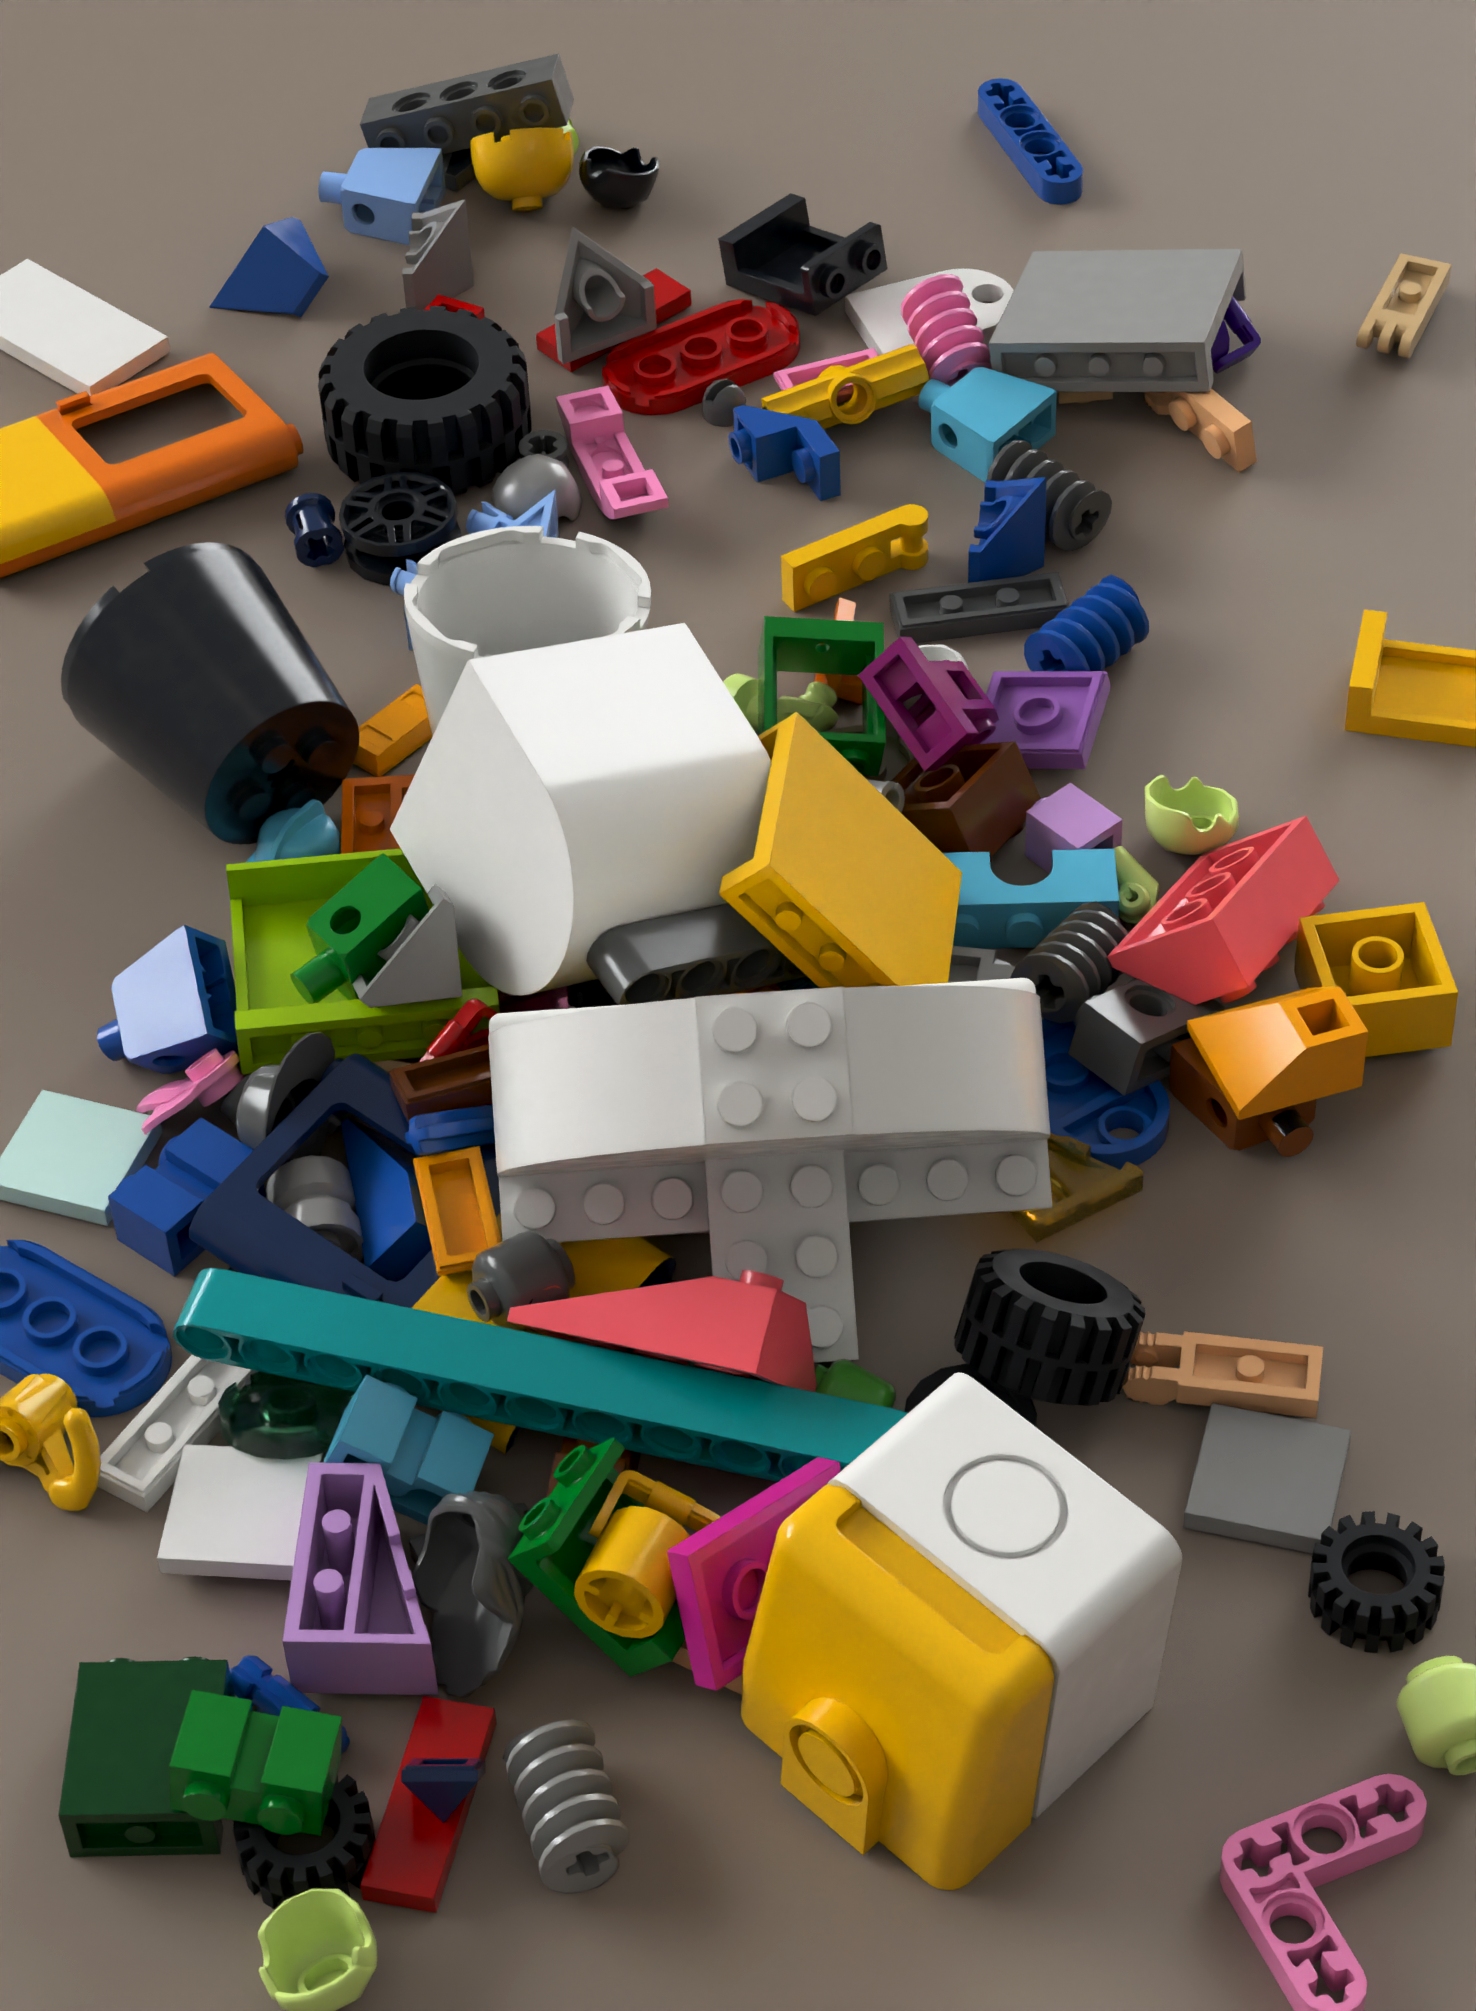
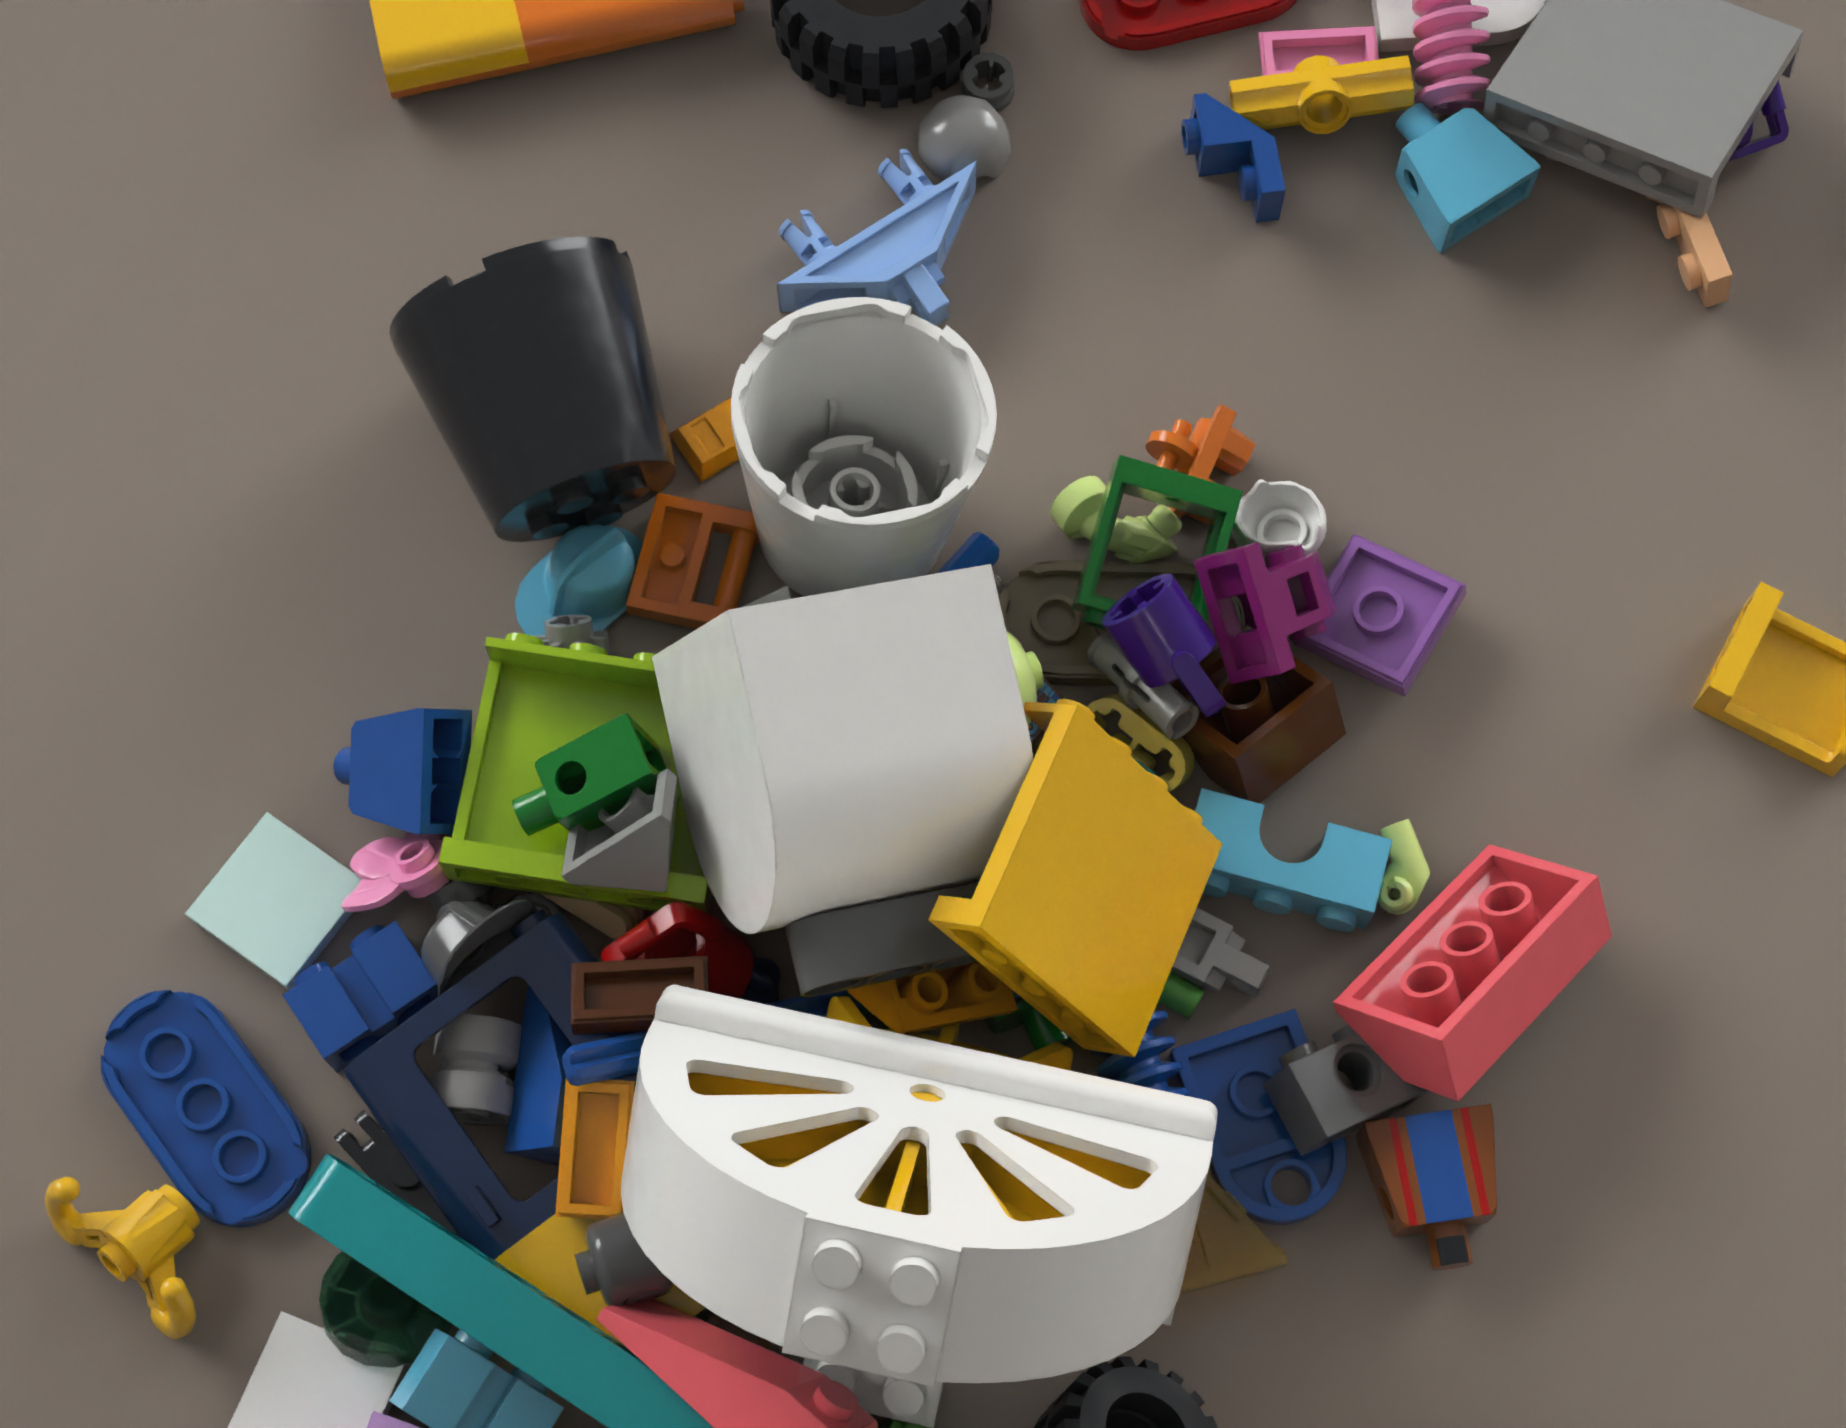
camera: 15 degrees right, 25 degrees up
(184, 1411) = (264, 1283): white tile -> none
(312, 522) = (725, 129): dark blue bush -> none
(395, 521) = (804, 122): black wheel -> none
(606, 456) = (1052, 113): bright pink slope -> none
(720, 400) = (1199, 66): dark grey hinge -> none
(855, 556) = (1262, 331): yellow plate -> none
(858, 721) = (1165, 639): none -> dark purple piece
(977, 607) = (1370, 430): dark grey tile -> none
(1009, 530) = (1427, 349): blue slope -> none
(1069, 822) = (1361, 785): lavender brick -> none
(1073, 505) = (1480, 308): dark grey piece -> none
(1073, 961) = (1300, 982): dark grey piece -> none
(1090, 631) = (1466, 516): blue piece -> none
(1189, 817) = (1490, 798): yellowish green hair -> none
(1283, 1049) = (1465, 1181): light orange slope -> none
(1388, 970) = (1600, 1093): yellow brick -> none

